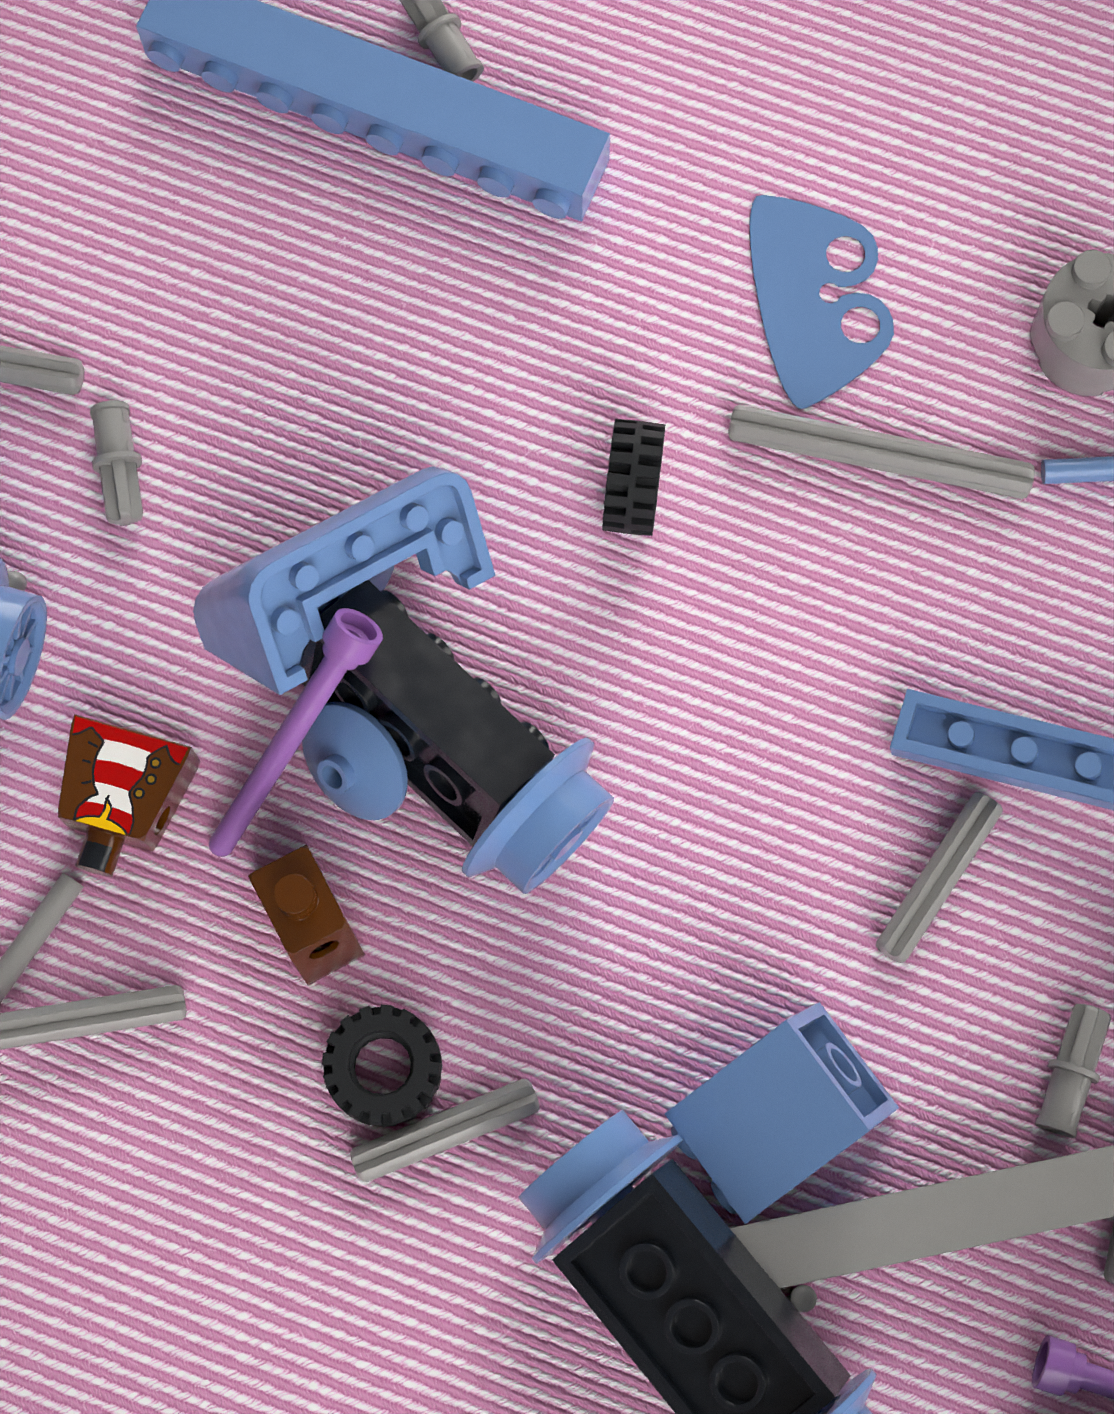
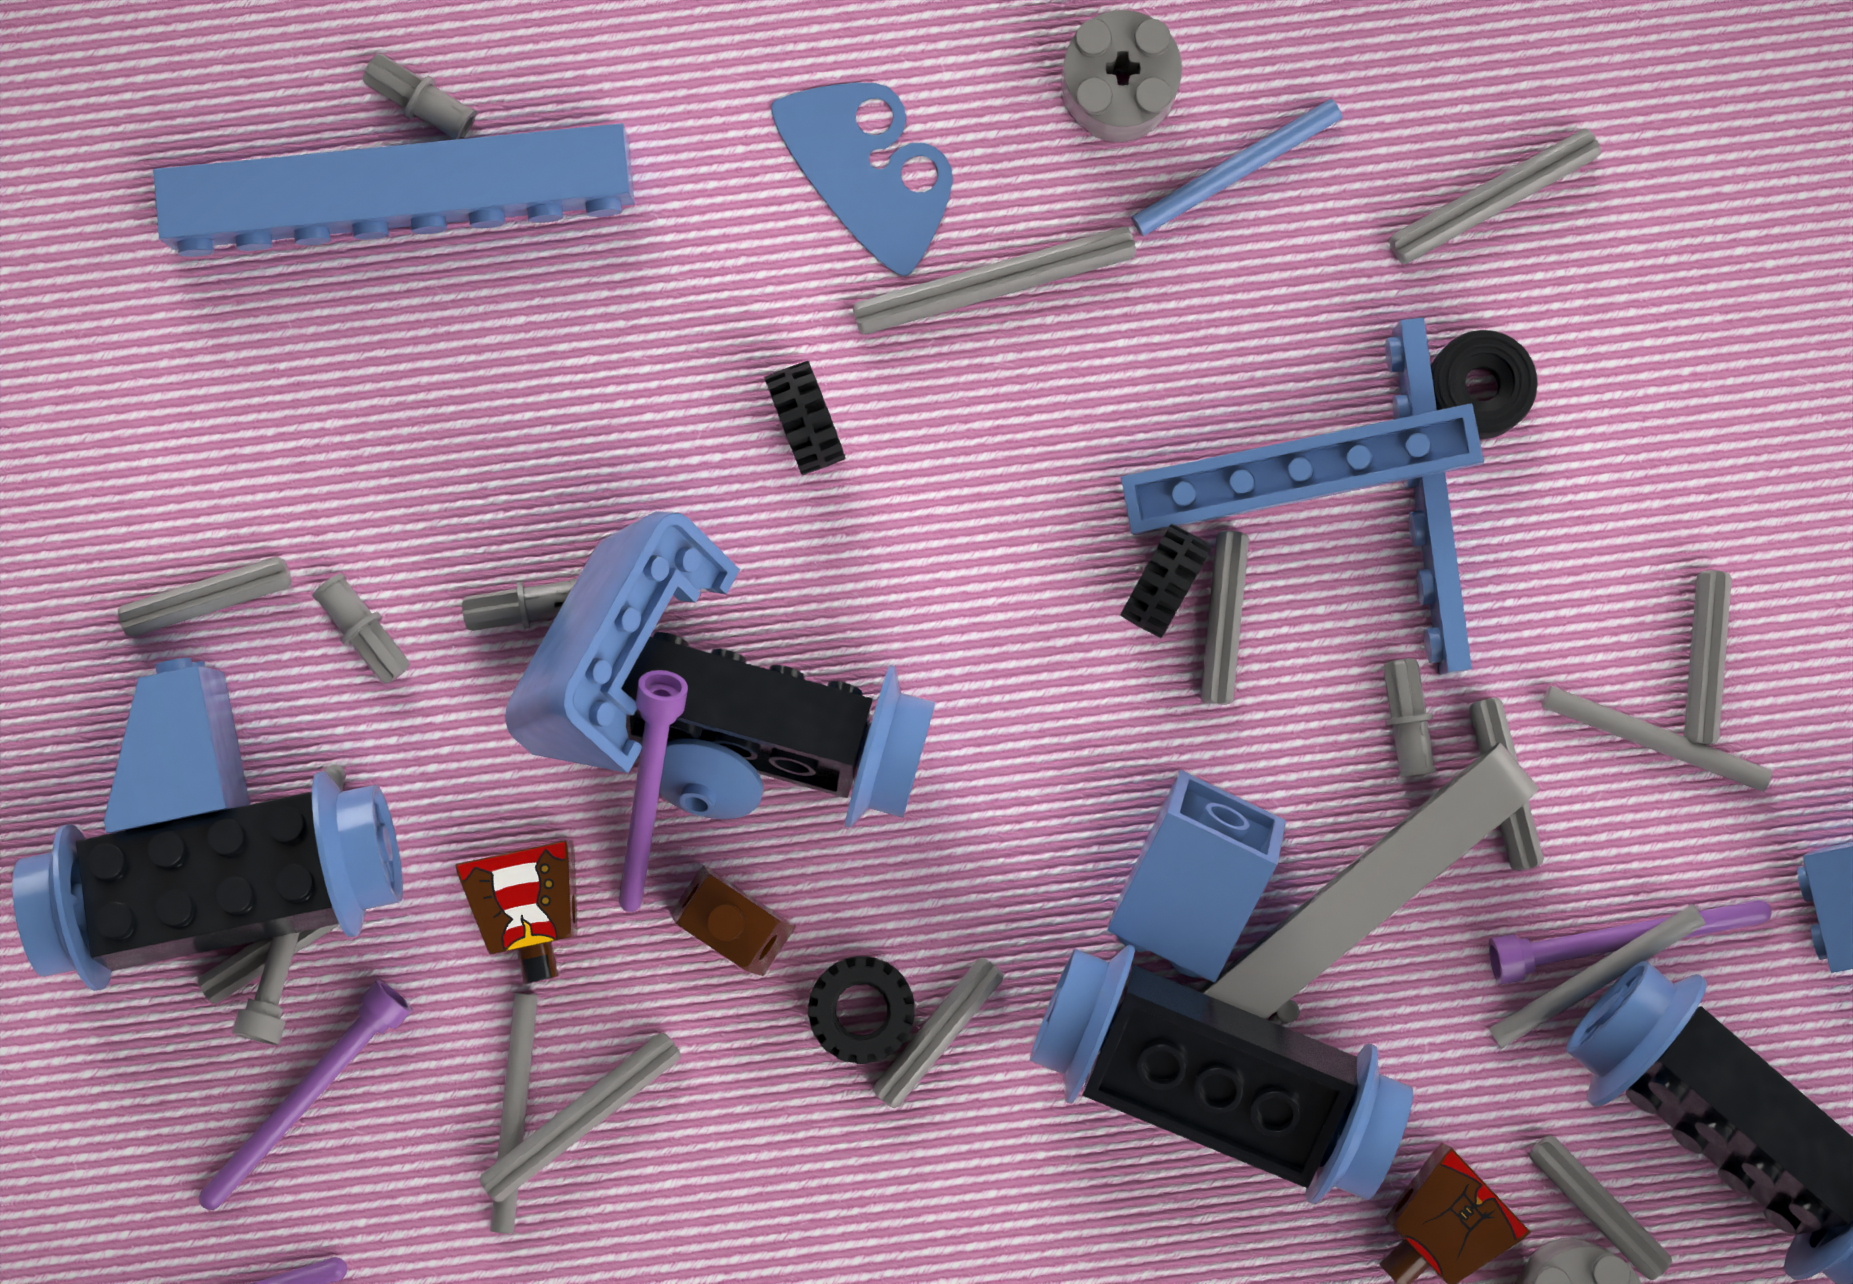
camera: 30 degrees left, 10 degrees up
(263, 512) = (515, 605): none -> light grey axle
(900, 805) = (1166, 580): none -> black tyre

